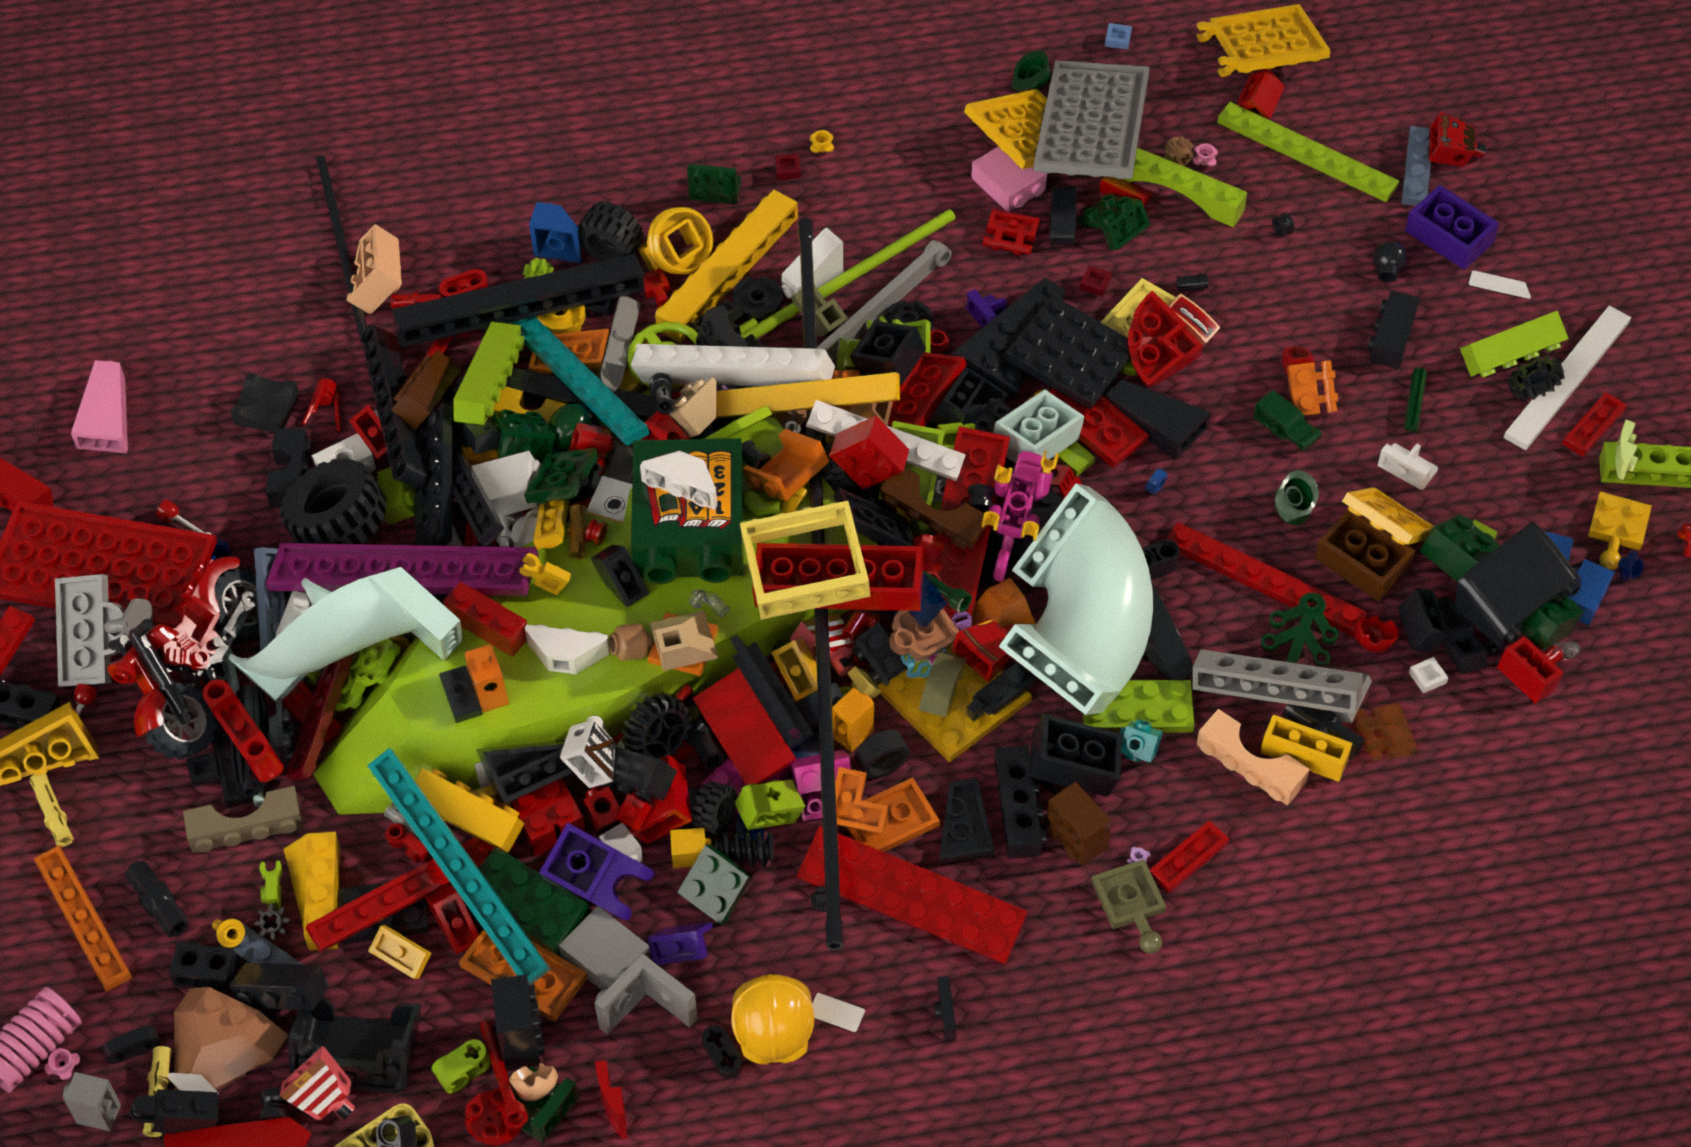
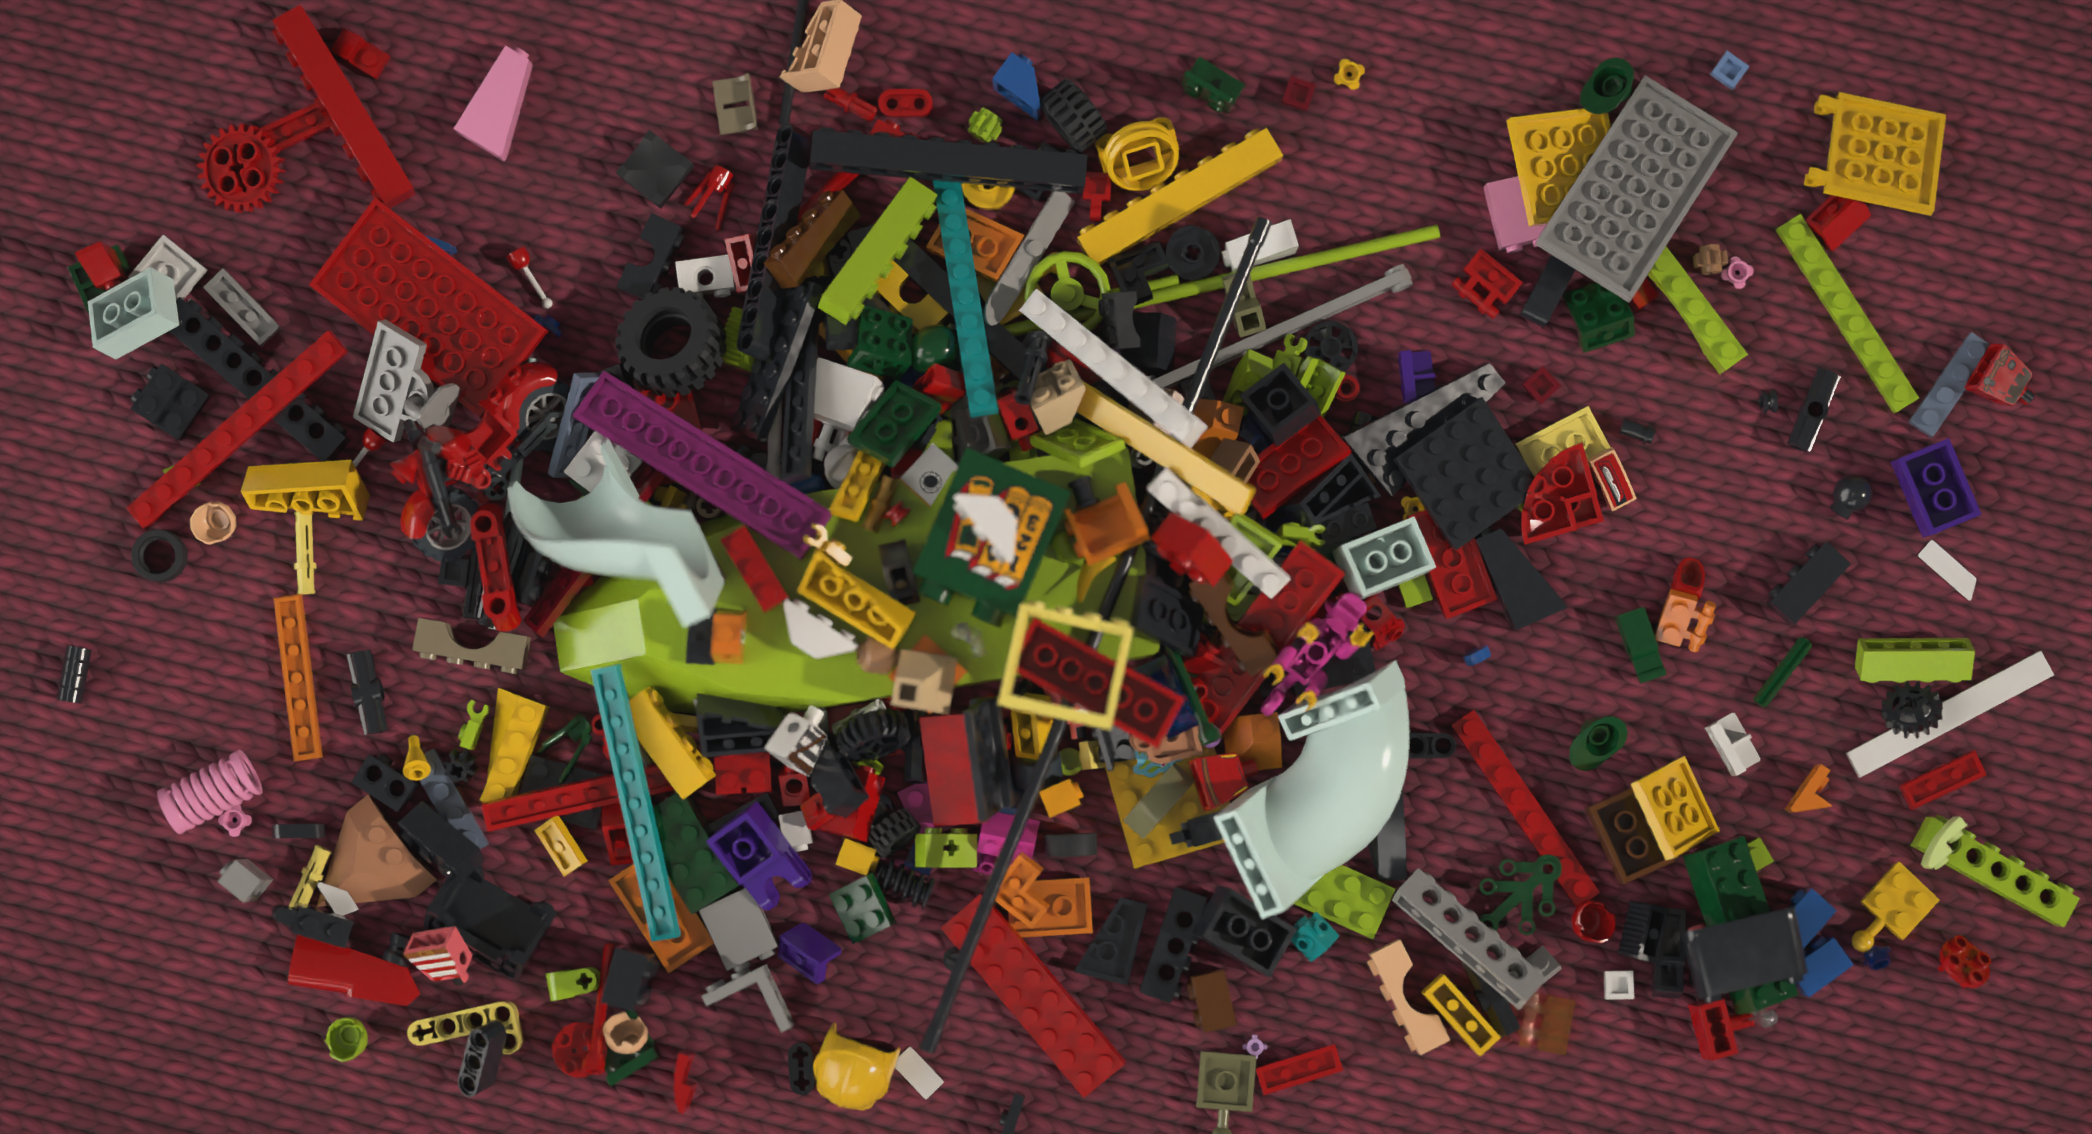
camera: 25 degrees right, 30 degrees up
(313, 329) = (730, 92): none -> dark tan piece
(374, 847) = (576, 729): none -> dark green plant
(575, 597) = (855, 601): none -> yellow wedge
(980, 496) = (1283, 629): black wheel -> none
(1322, 217) = (1820, 394): none -> black piece
(1495, 473) = (1805, 797): none -> orange slope

